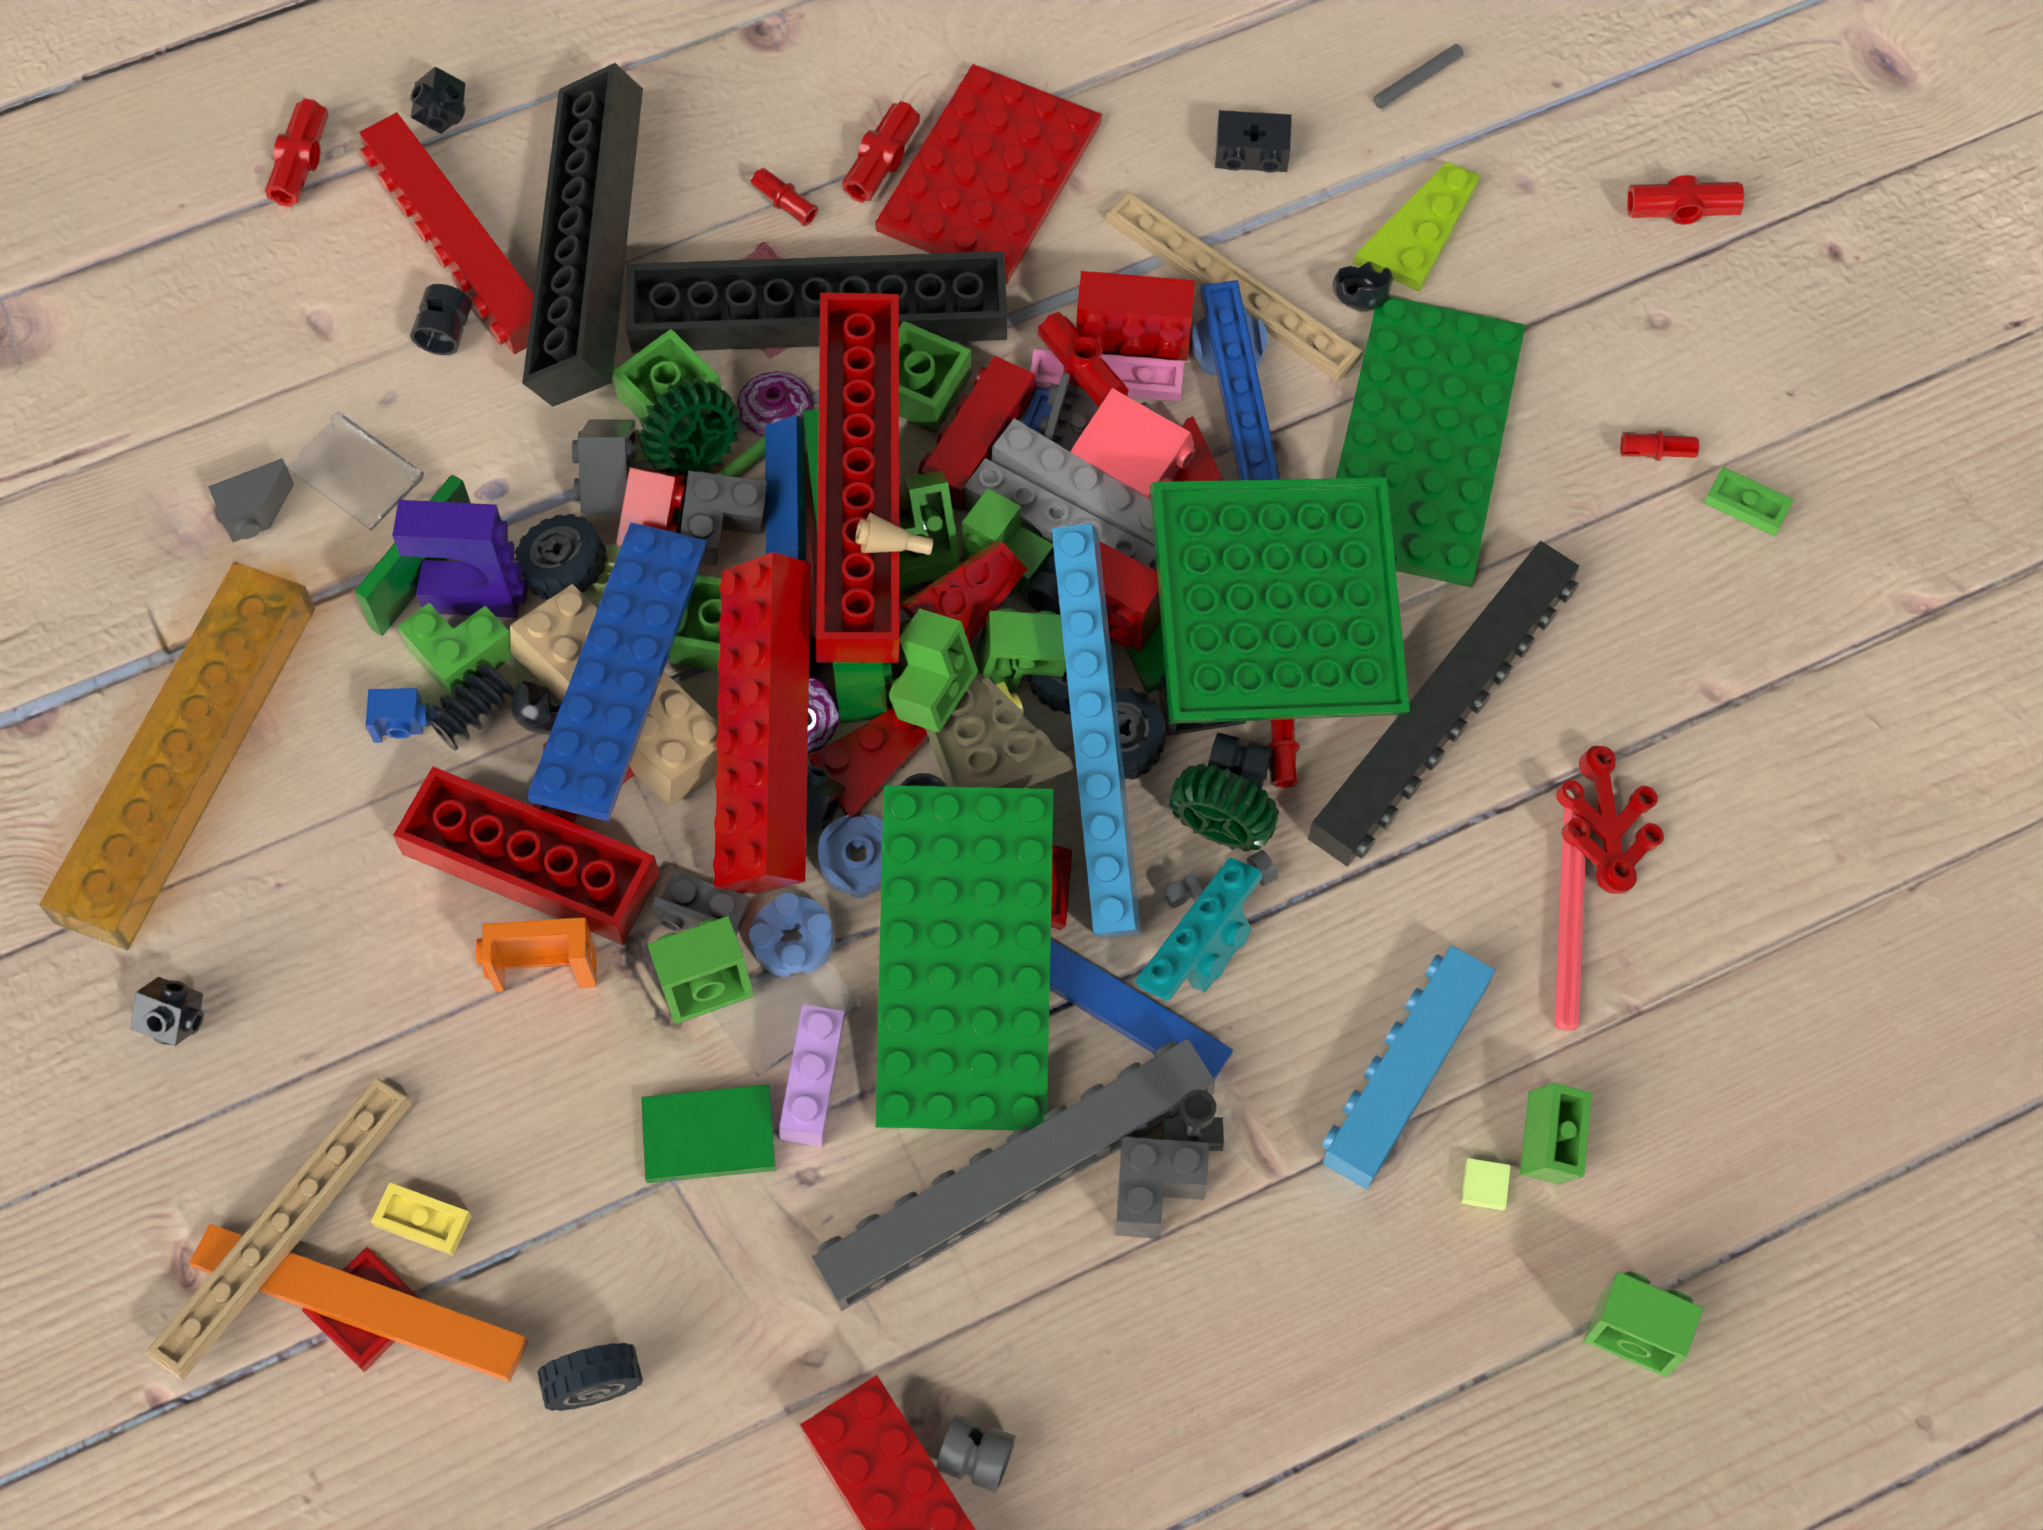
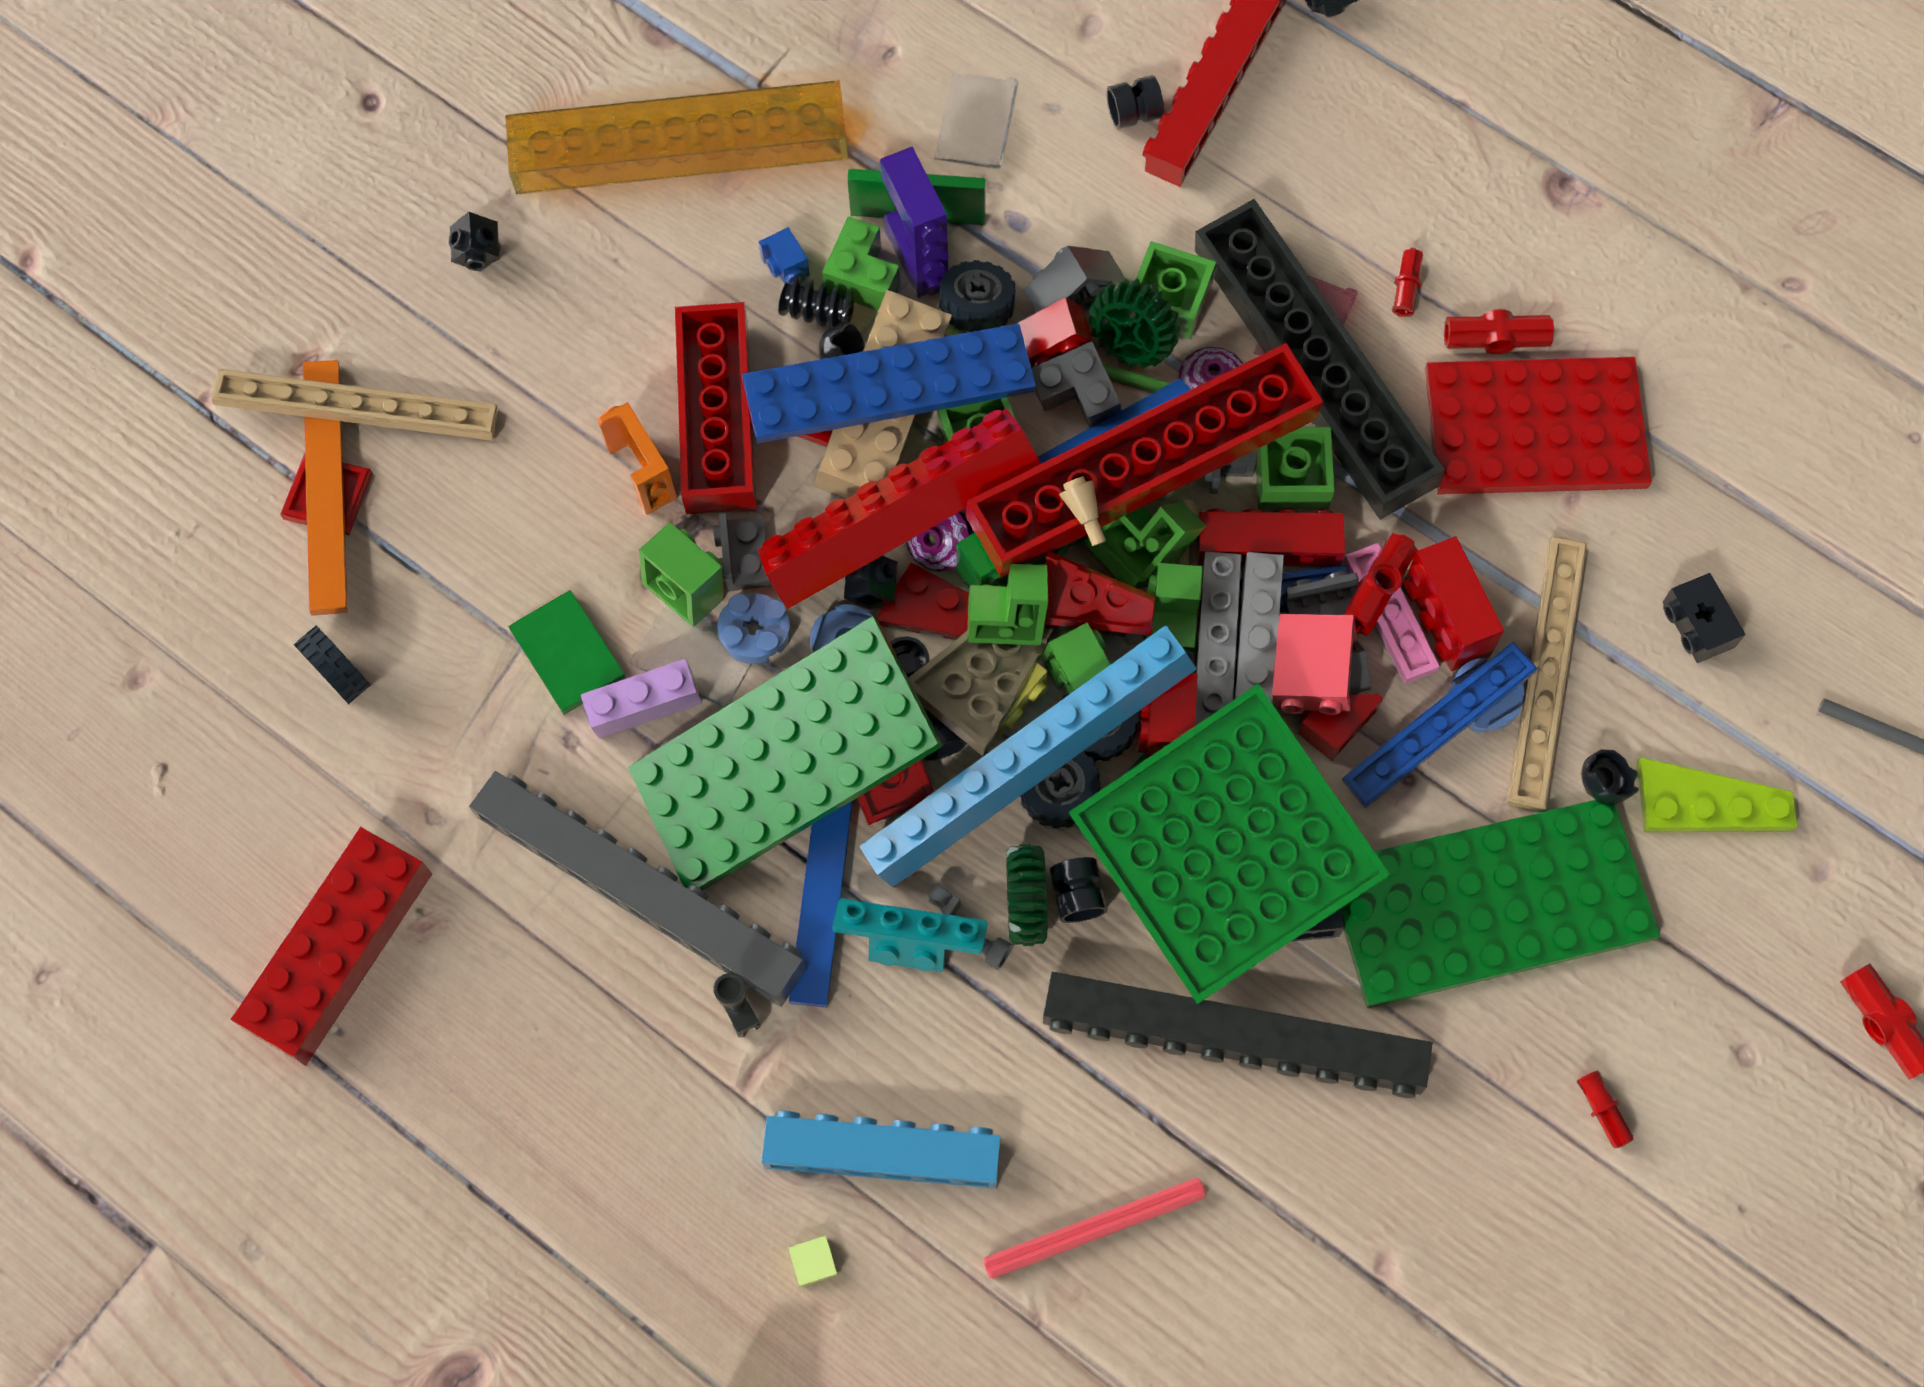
camera: 65 degrees right, 5 degrees up
(252, 499) = (906, 65): dark grey slope -> none
(421, 1219) = (405, 492): light yellow plate -> none
(583, 237) = (1266, 154): pearl dark grey brick -> none
(975, 1453) = (403, 966): dark grey wheel -> none
(1154, 1171) = (682, 986): dark grey brick -> none
(1284, 753) = (1110, 924): red axle -> none
(1556, 1133) = (876, 1297): bright green brick -> none
(1607, 823) = (1192, 1224): red plant -> none
(1748, 501) = (1594, 1214): bright green plate -> none

